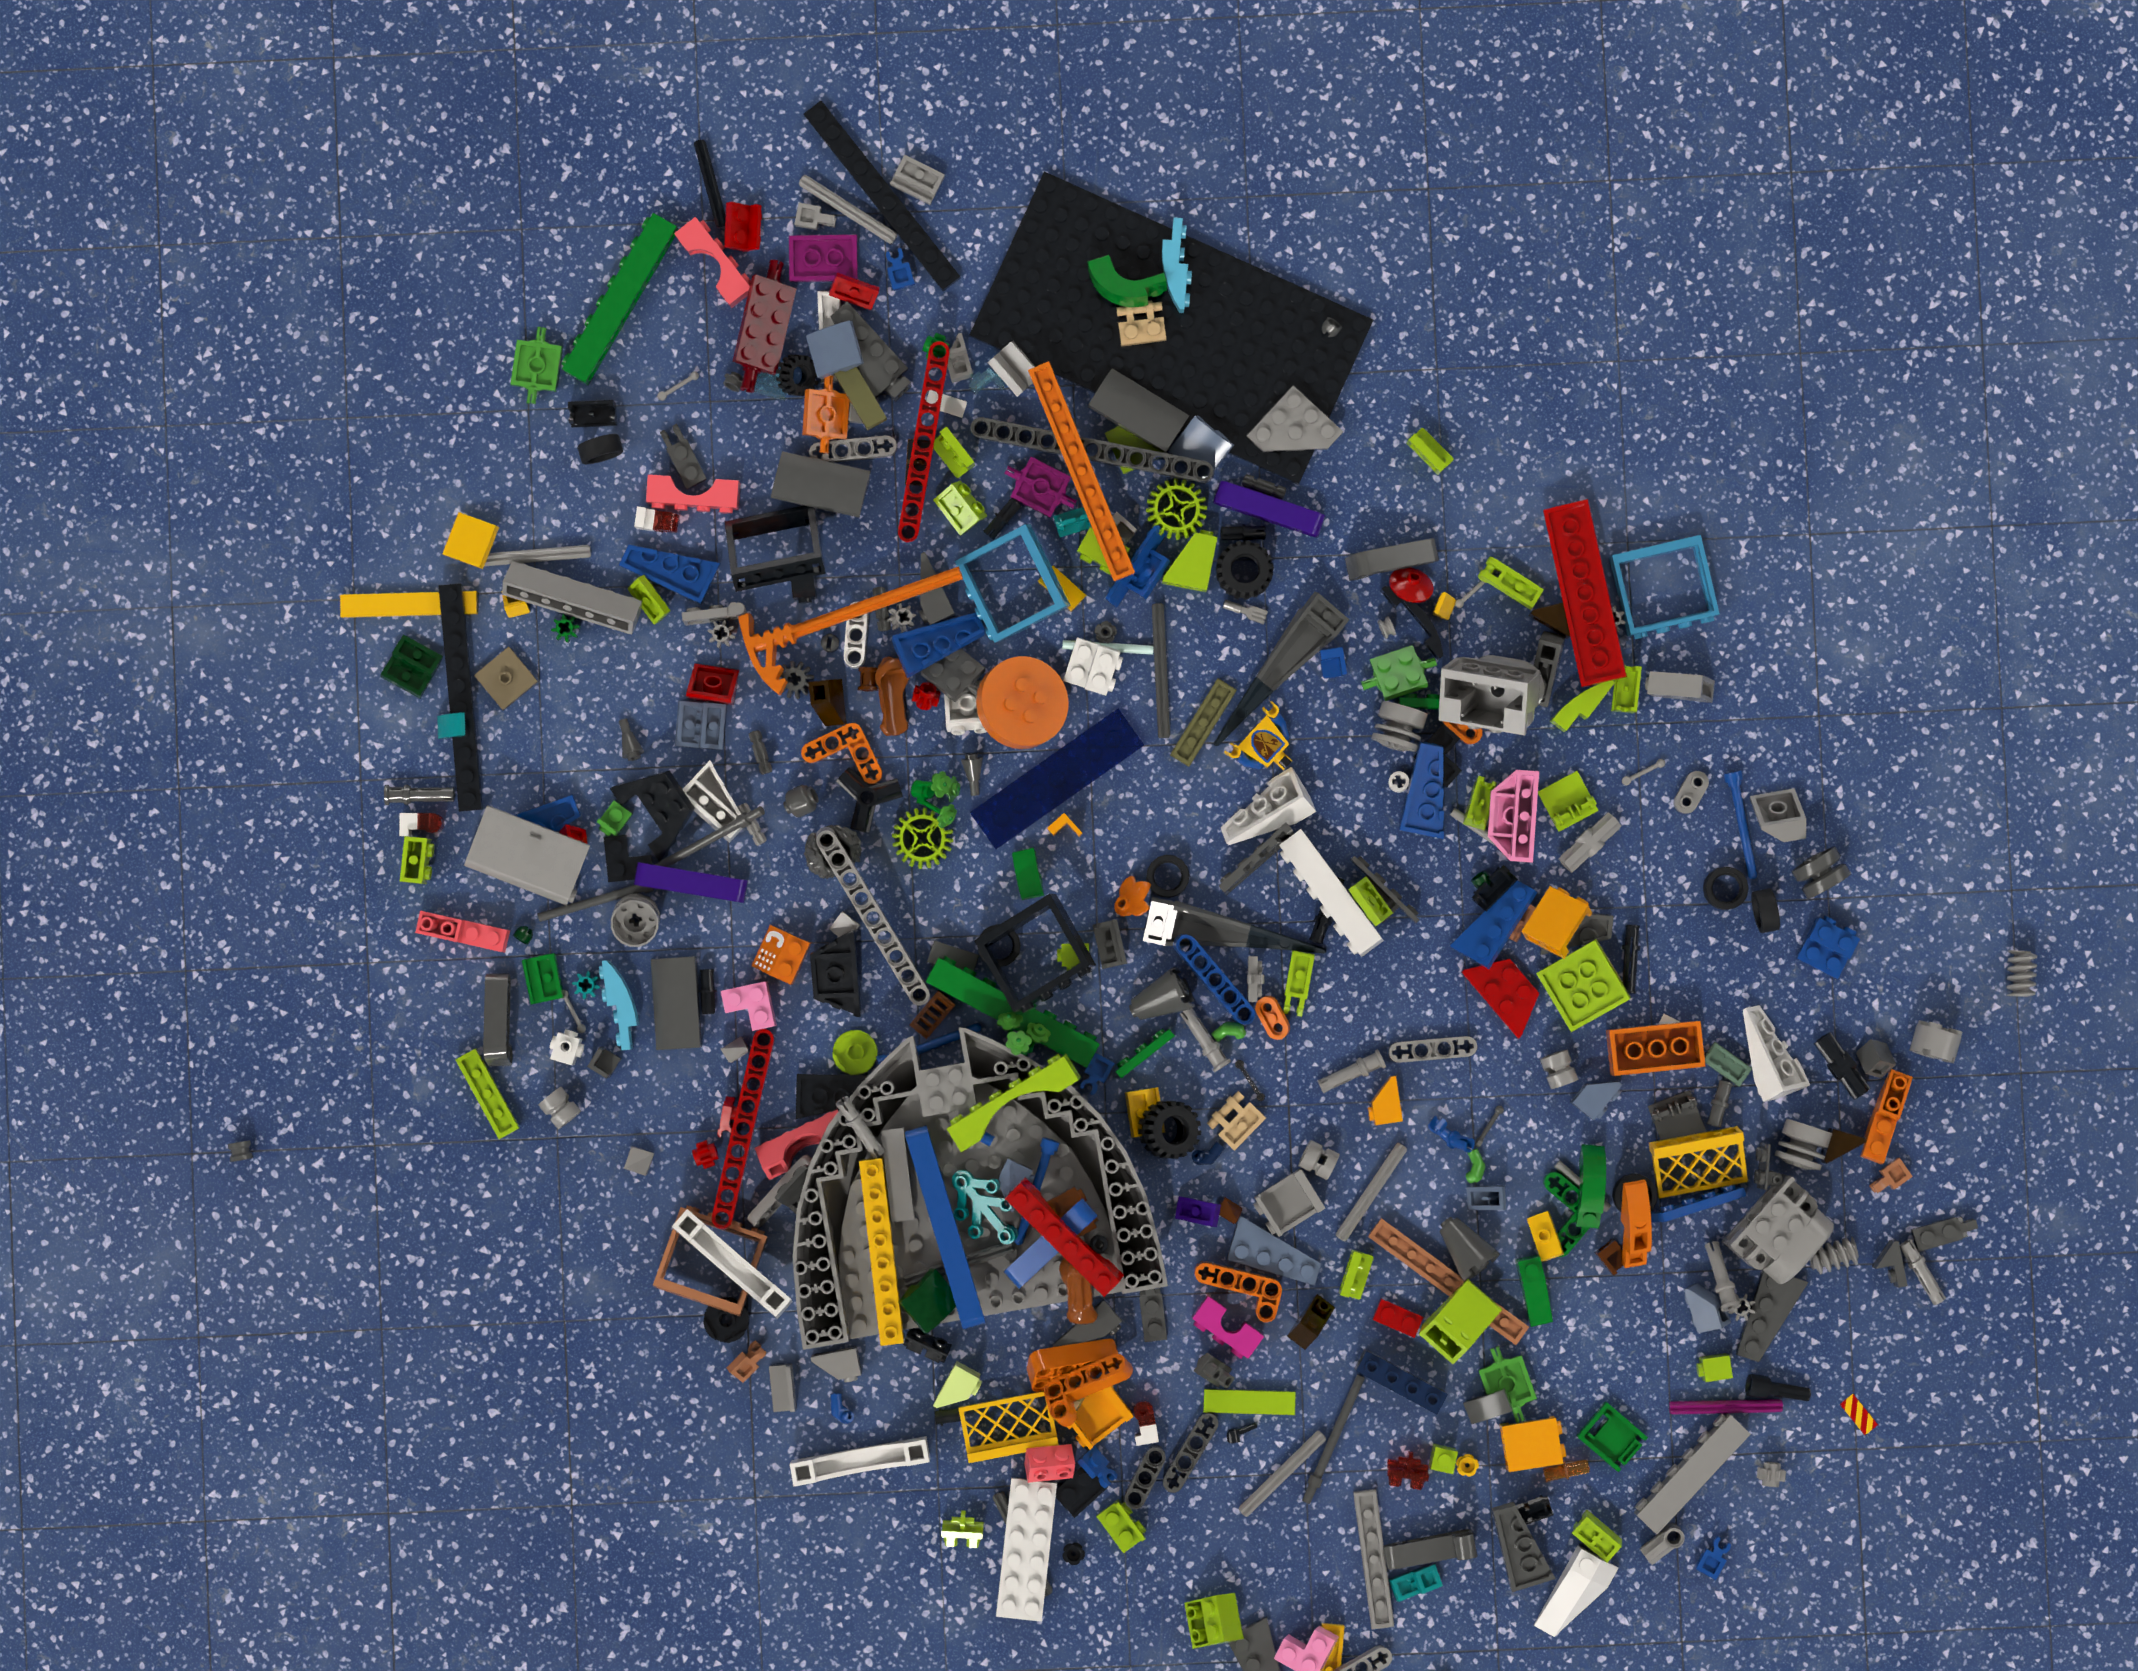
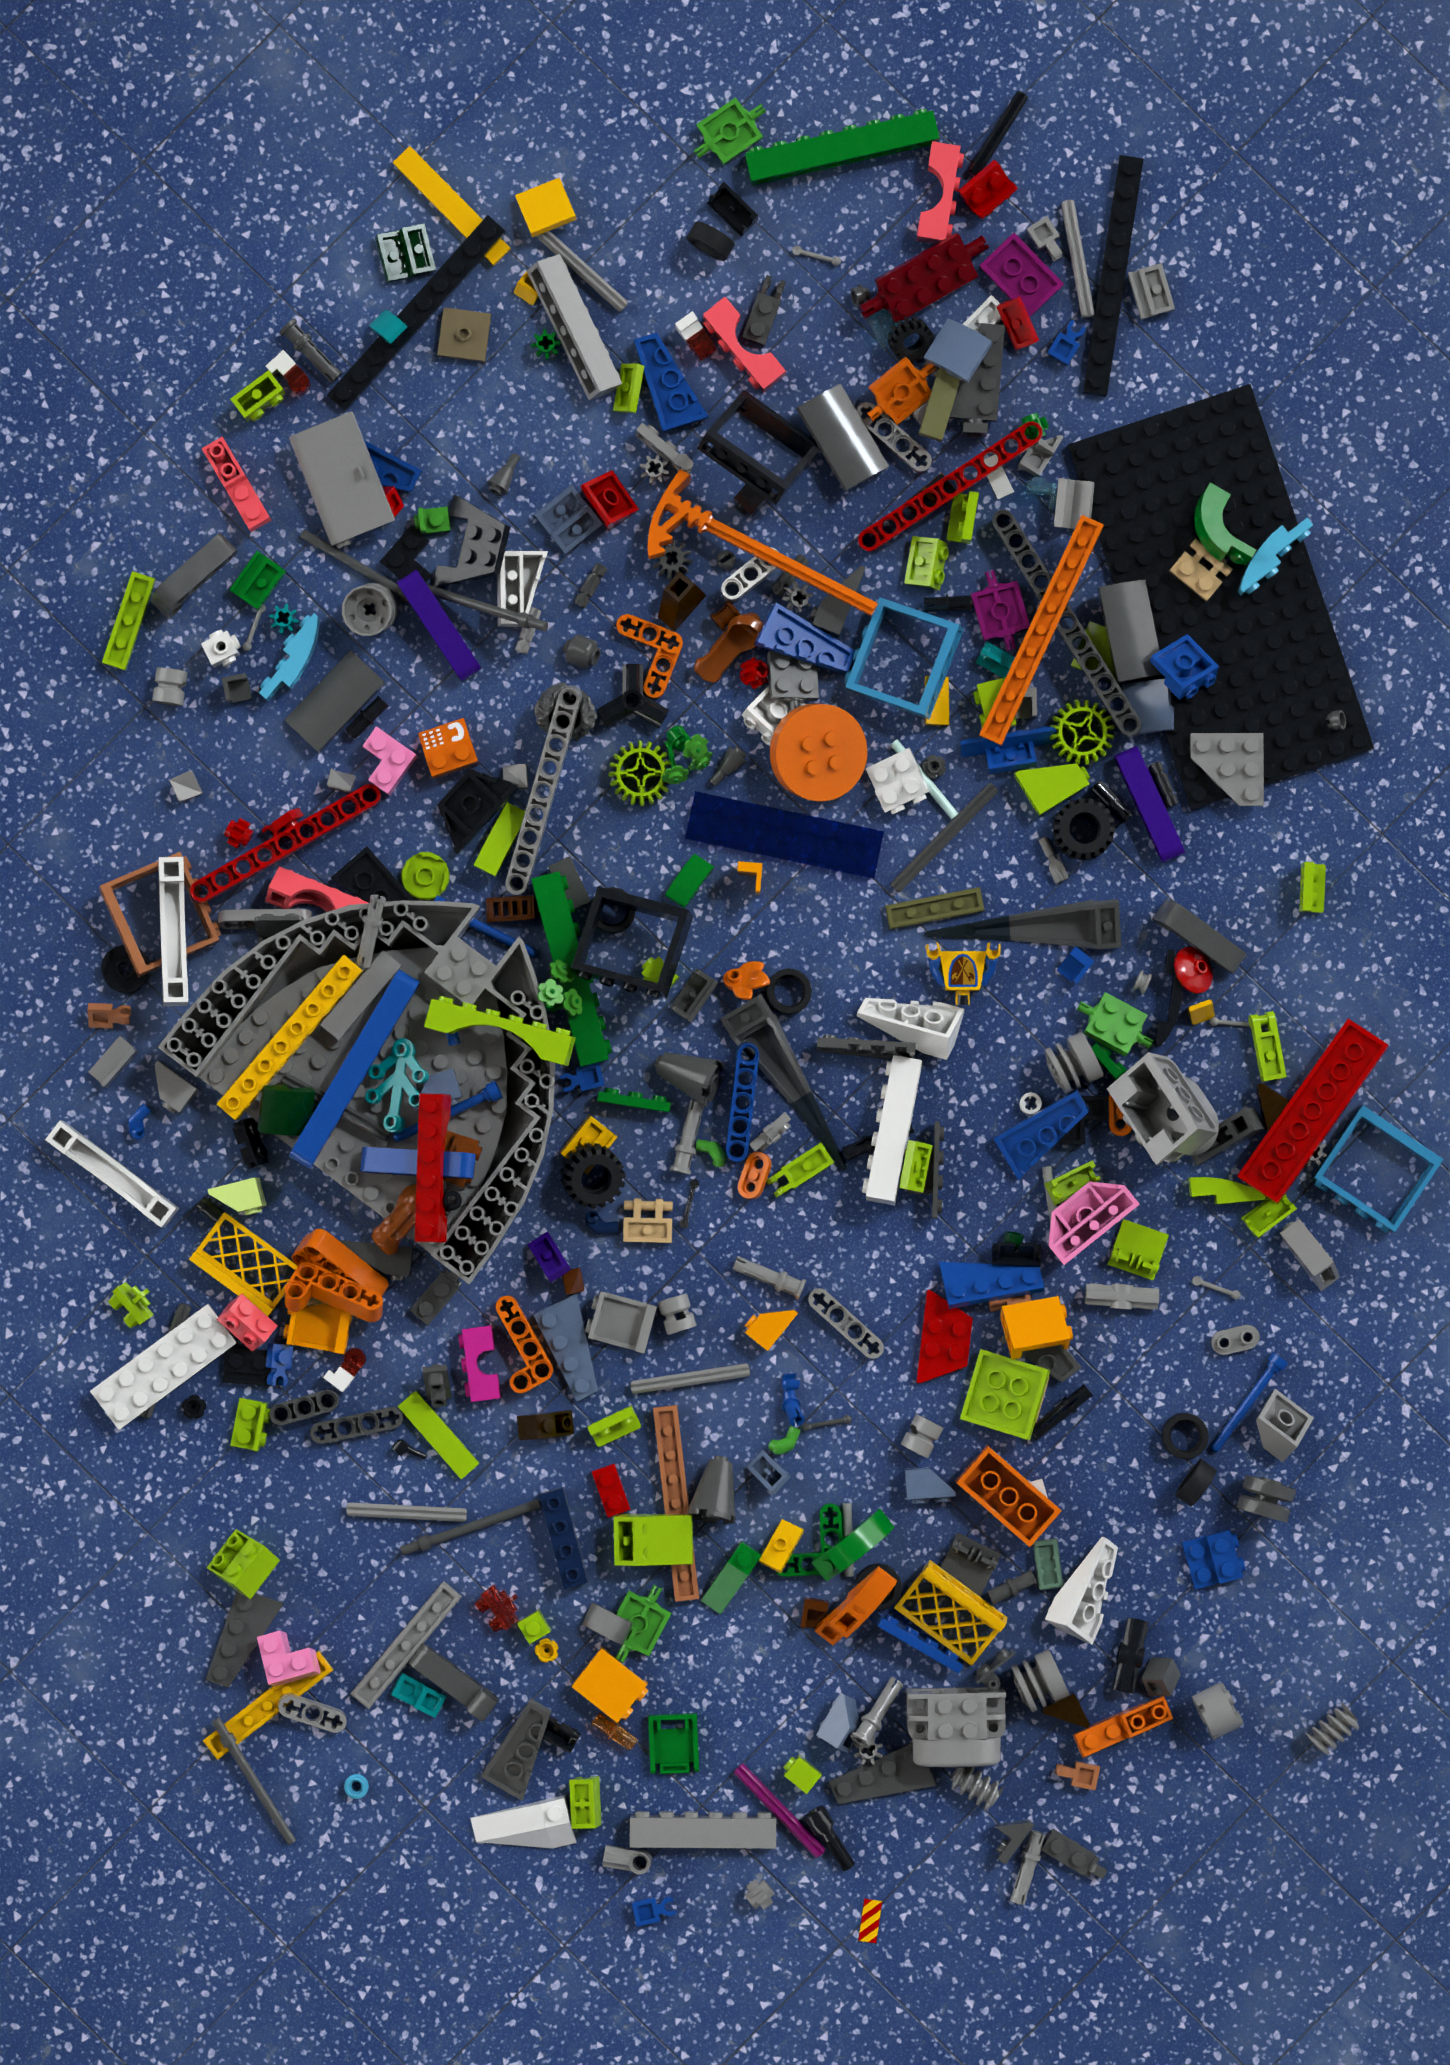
camera: 45 degrees right, 0 degrees up
(523, 934) = (278, 534): dark green hinge -> none
(878, 977) = (500, 840): none -> lime slope
(1198, 396) = (1185, 667): none -> blue plate

